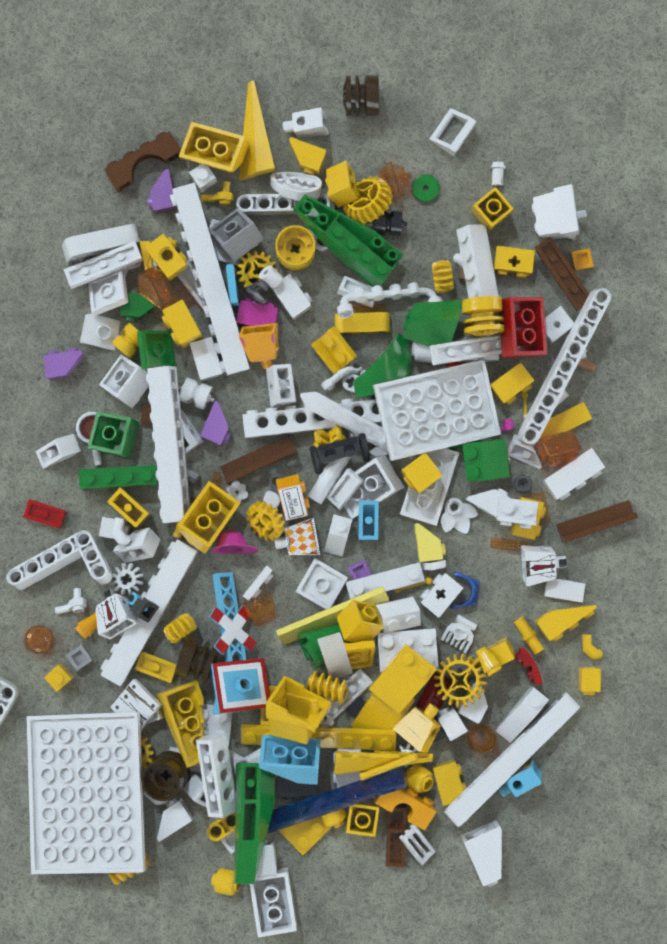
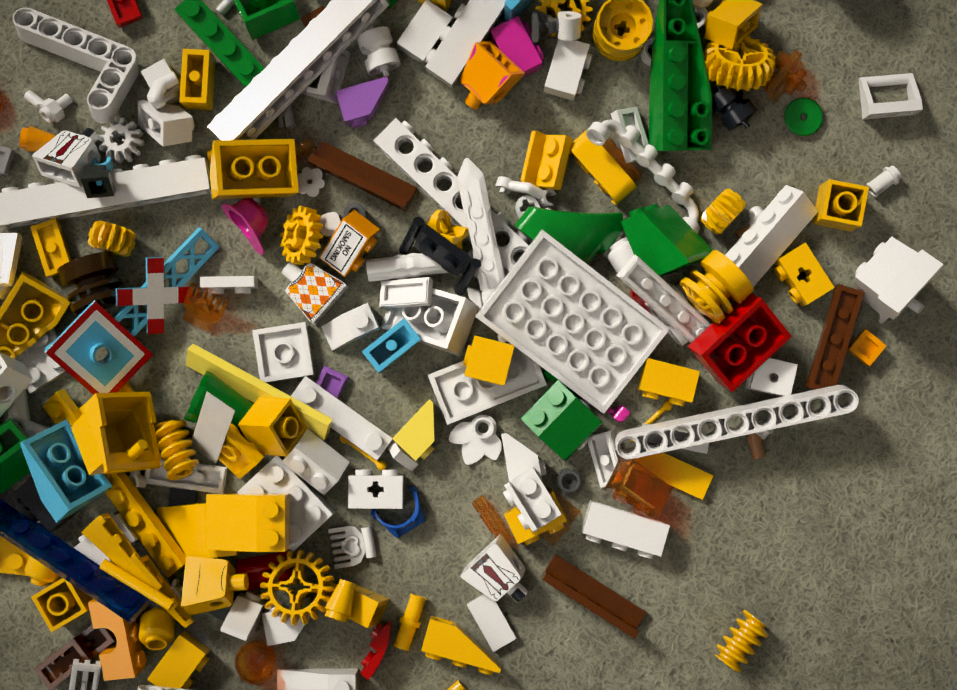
camera: 55 degrees right, 0 degrees up
(280, 385) = (461, 133): white brick -> none

